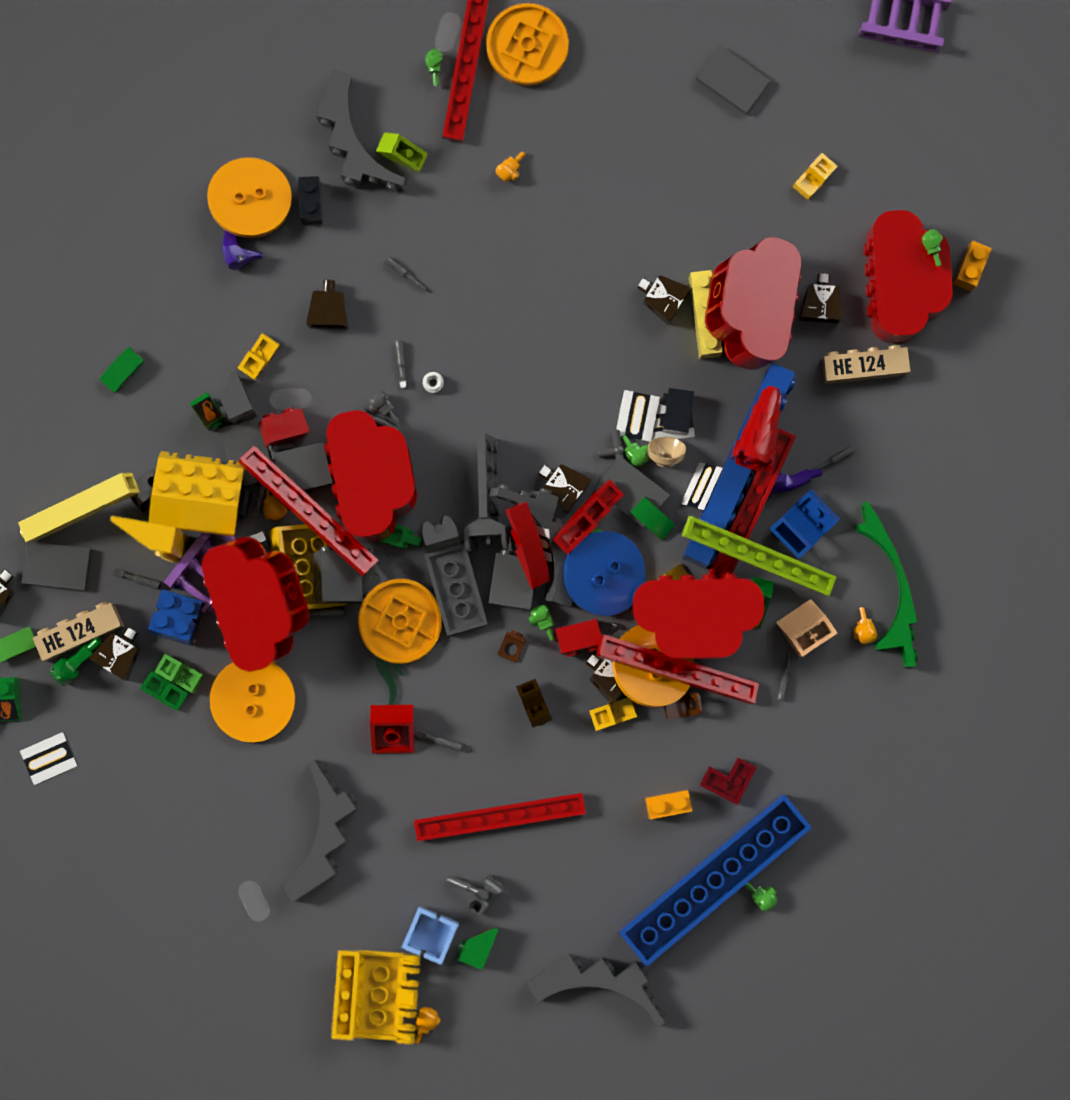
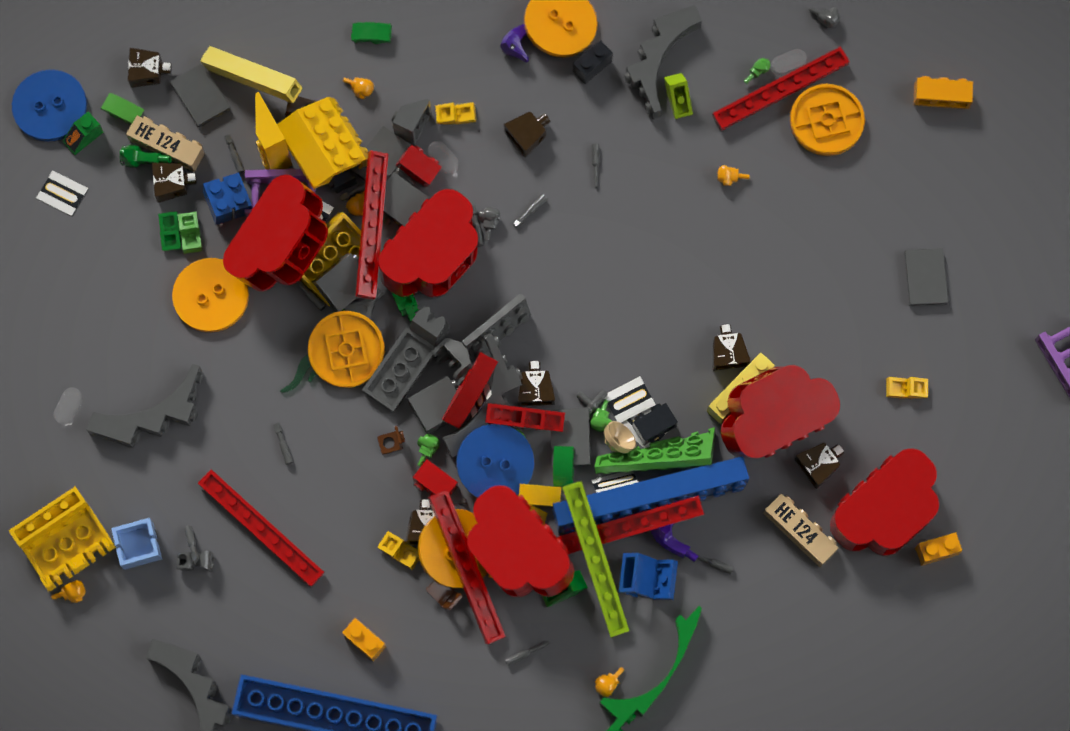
camera: 55 degrees right, 10 degrees down
(166, 418) = (361, 87): none -> light orange piece
(208, 411) = (388, 104): slope -> none
(392, 728) = (265, 404): red slope -> none
(430, 376) = (534, 236): white plate -> none
(477, 948) = (153, 586): green slope -> none
(534, 703) = (361, 487): dark brown brick -> none
(661, 557) = (540, 494): none -> yellow slope
(711, 426) = (664, 454): none -> bright green wing
(731, 786) = (416, 677): dark red plate -> none
(759, 436) = (680, 485): red cone -> none
(806, 628) = (572, 638): light nougat slope -> none
(931, 242) = (925, 498): bright green piece -> none

